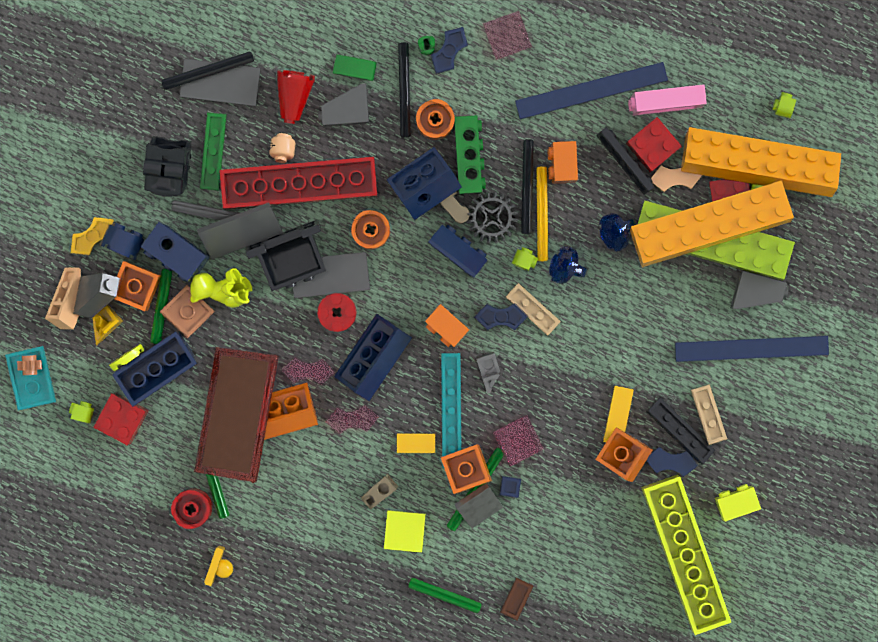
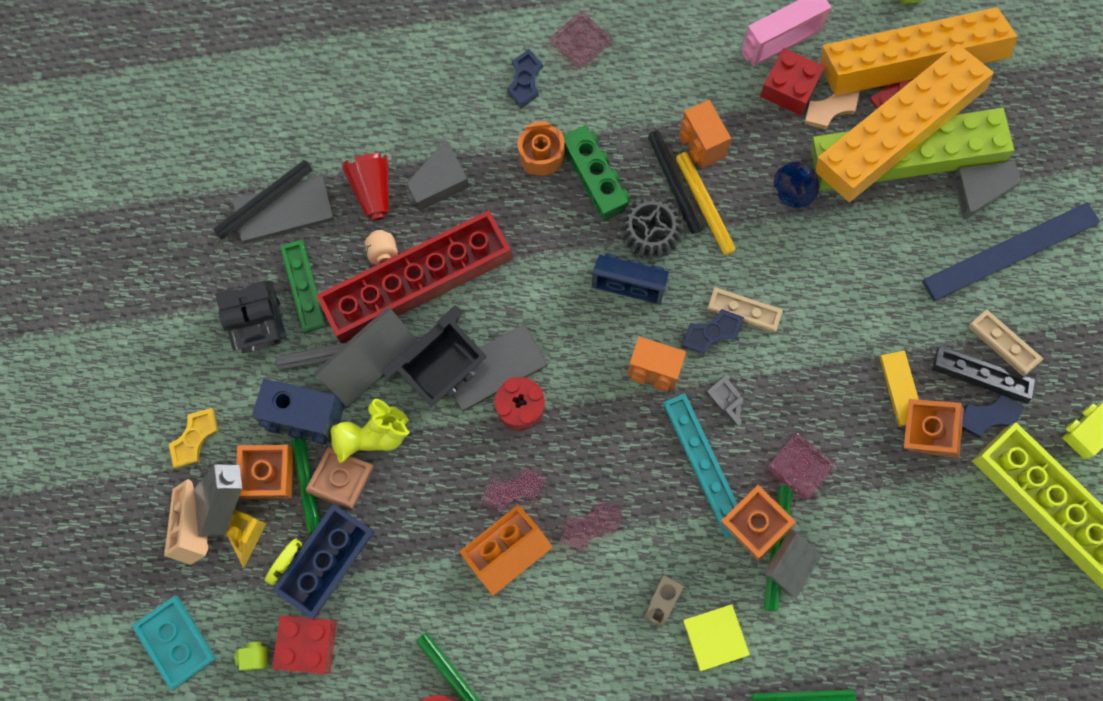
camera: 20 degrees left, 15 degrees down
(29, 365) = (164, 623): nougat gear -> none
(122, 241) = (229, 424): dark blue brick -> none
(236, 414) = (448, 577): reddish brown door -> none
(354, 67) = (428, 133): green slope -> none
(365, 239) = (519, 281): orange brick -> none
(372, 357) = (585, 439): dark blue slope -> none
(404, 90) = (493, 137): black axle -> none
(415, 443) = (680, 521): yellow tile -> none
(424, 183) = (559, 216): dark blue piece -> none
(431, 41) = (498, 73): green hinge -> none
(455, 210) = (603, 234): dark tan leg -> none
(510, 486) = (817, 526): dark blue tile -> none
(516, 598) = (893, 664): reddish brown tile -> none
(524, 259) = (709, 257): lime plate -> none
(565, 265) = (760, 243): clear blue tile -> none
(591, 90) = (692, 60): dark blue tile -> none
(628, 164) = (769, 110): black plate -> none

